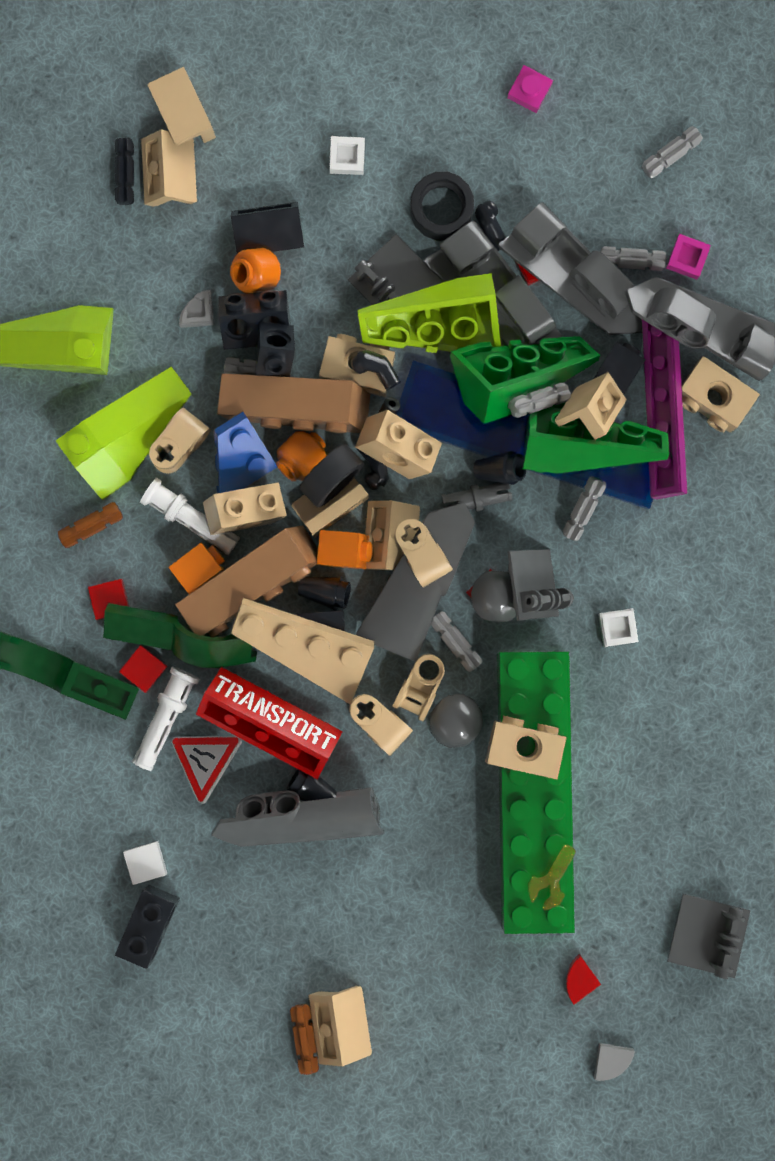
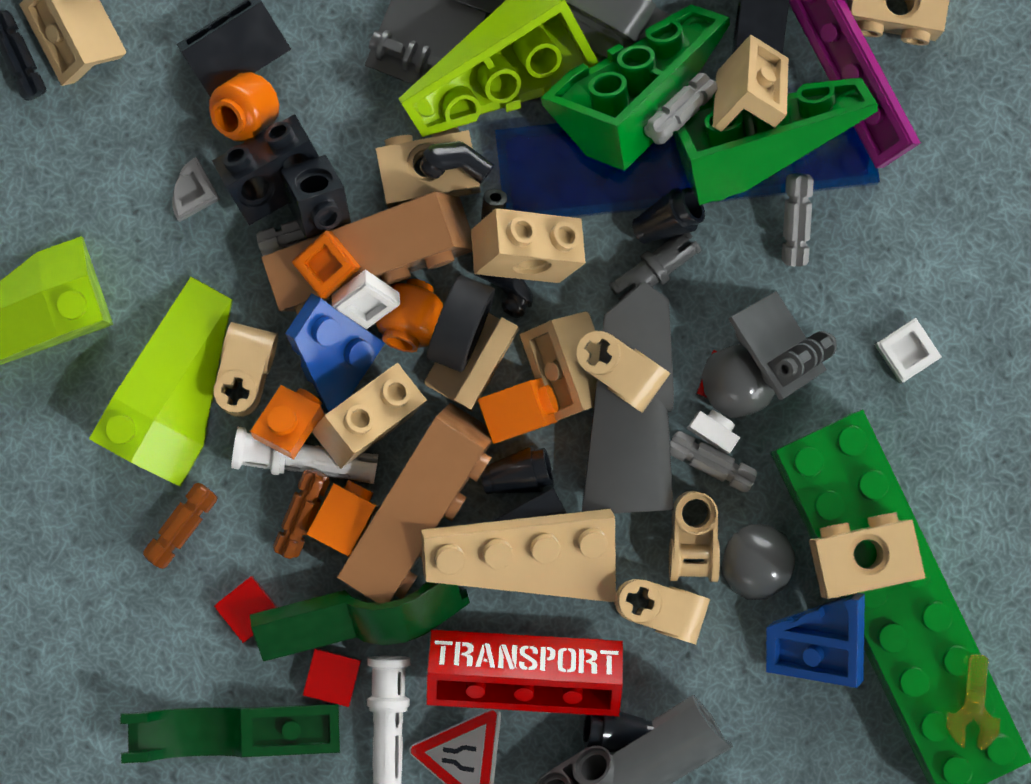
camera: 25 degrees left, 0 degrees up
(171, 552) = (301, 513): none -> dark orange axle
(190, 488) = (288, 420): none -> orange bracket
(260, 397) = (326, 264): none -> orange tile
(276, 431) = (365, 299): none -> white tile
(466, 621) = (714, 430): none -> white plate
(471, 792) = (820, 643): none -> blue wing

